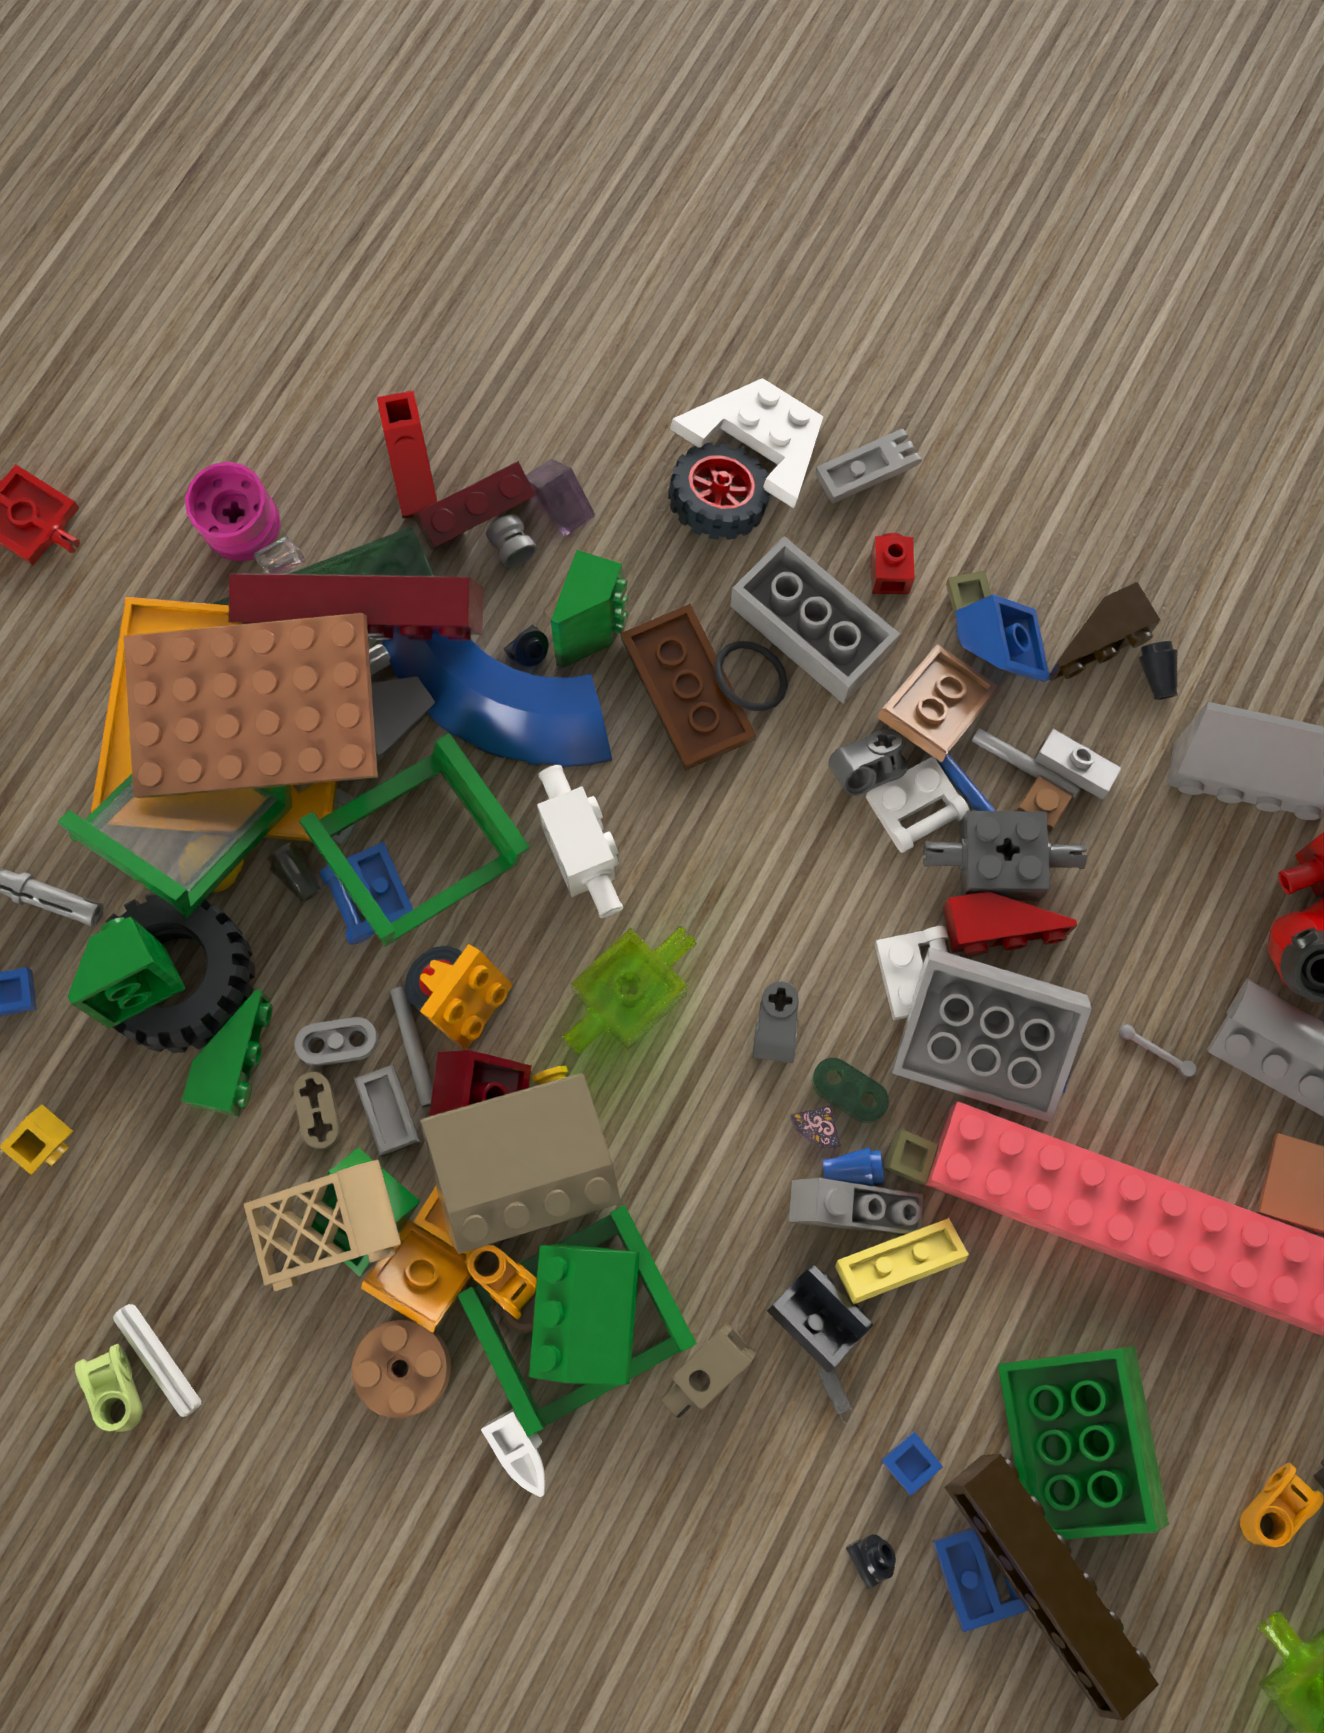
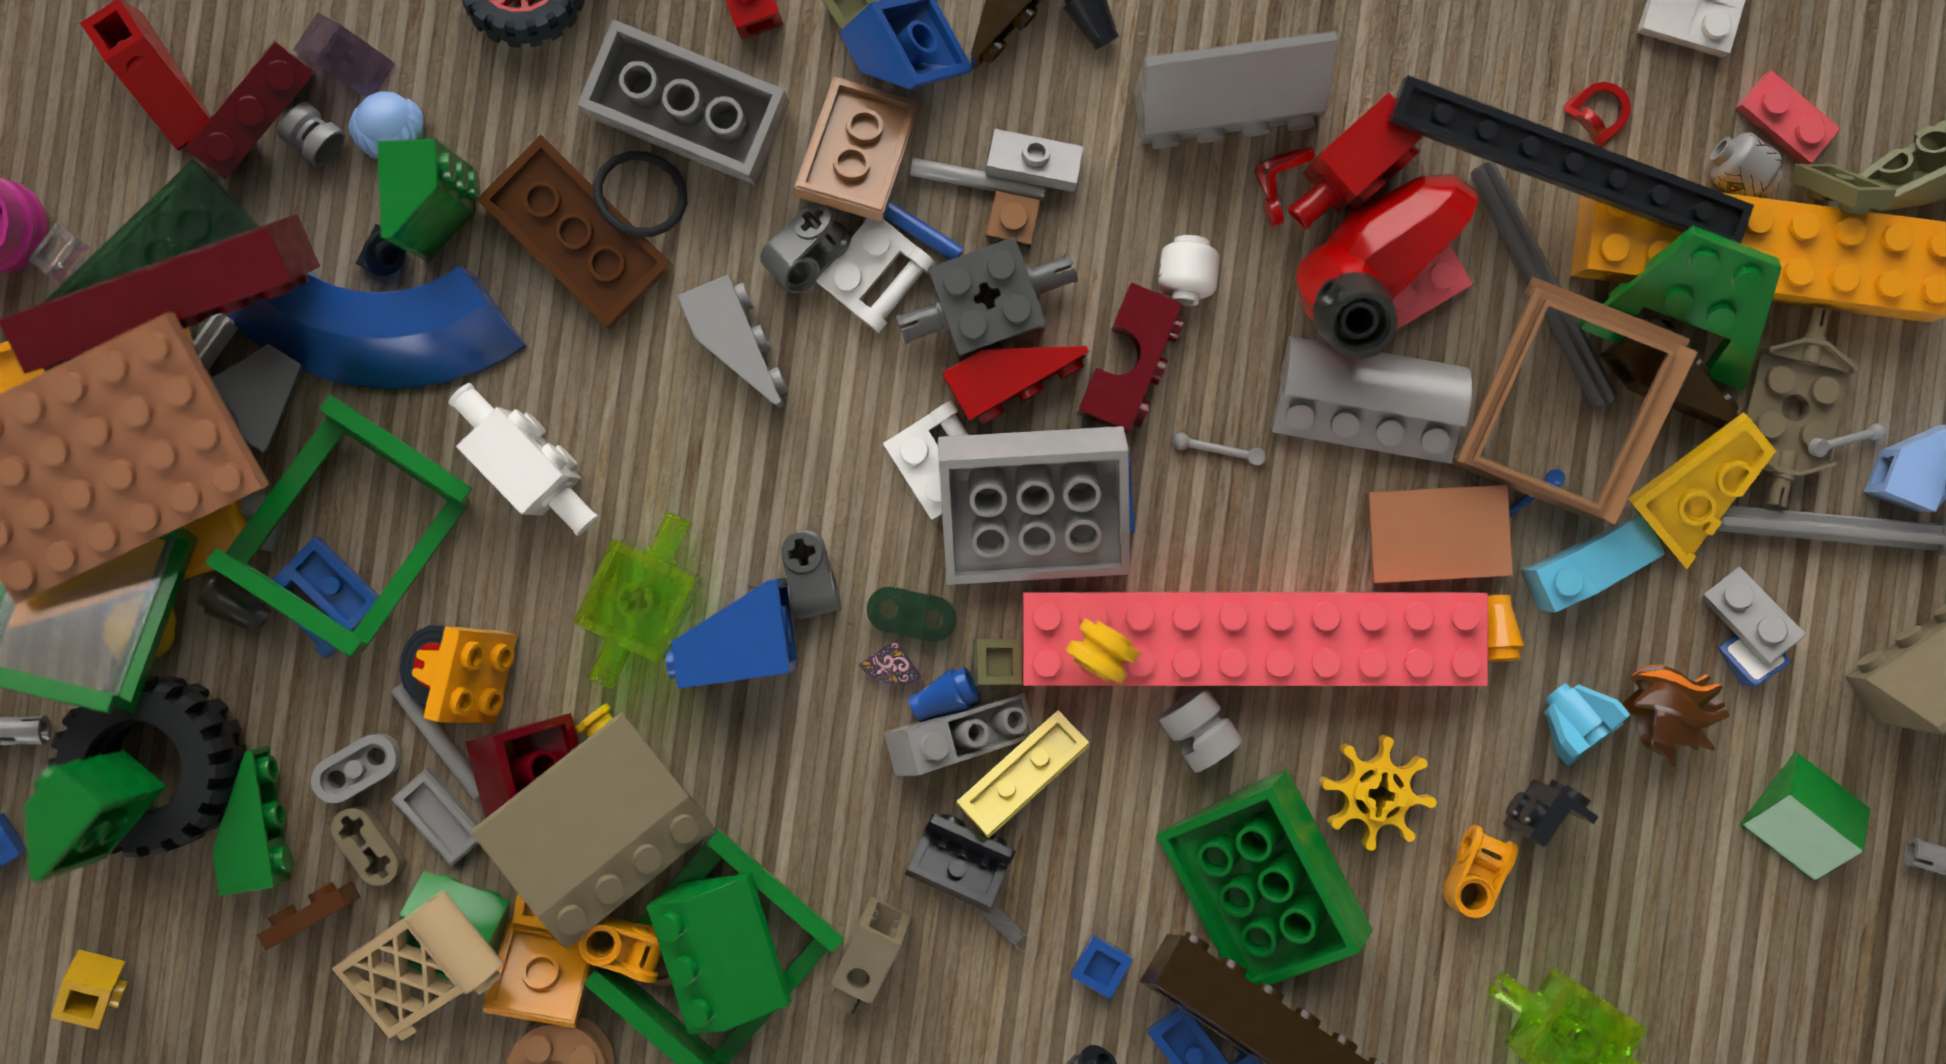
camera: 20 degrees left, 15 degrees up
(228, 1150) = (290, 922): none -> reddish brown plate
(560, 549) = (385, 118): none -> light blue hair
(699, 1051) = (739, 641): none -> blue slope
(779, 803) = (722, 325): none -> light grey slope
(1015, 1170) = (1103, 651): none -> yellow wheel
(1069, 1281) = (1202, 732): none -> light grey wheel
(1130, 923) = (1148, 322): none -> dark red arch
(1179, 893) = (1189, 269): none -> white head
(1224, 1391) = (1383, 809): none -> yellow gear
(1263, 867) = (1268, 183): none -> red piece

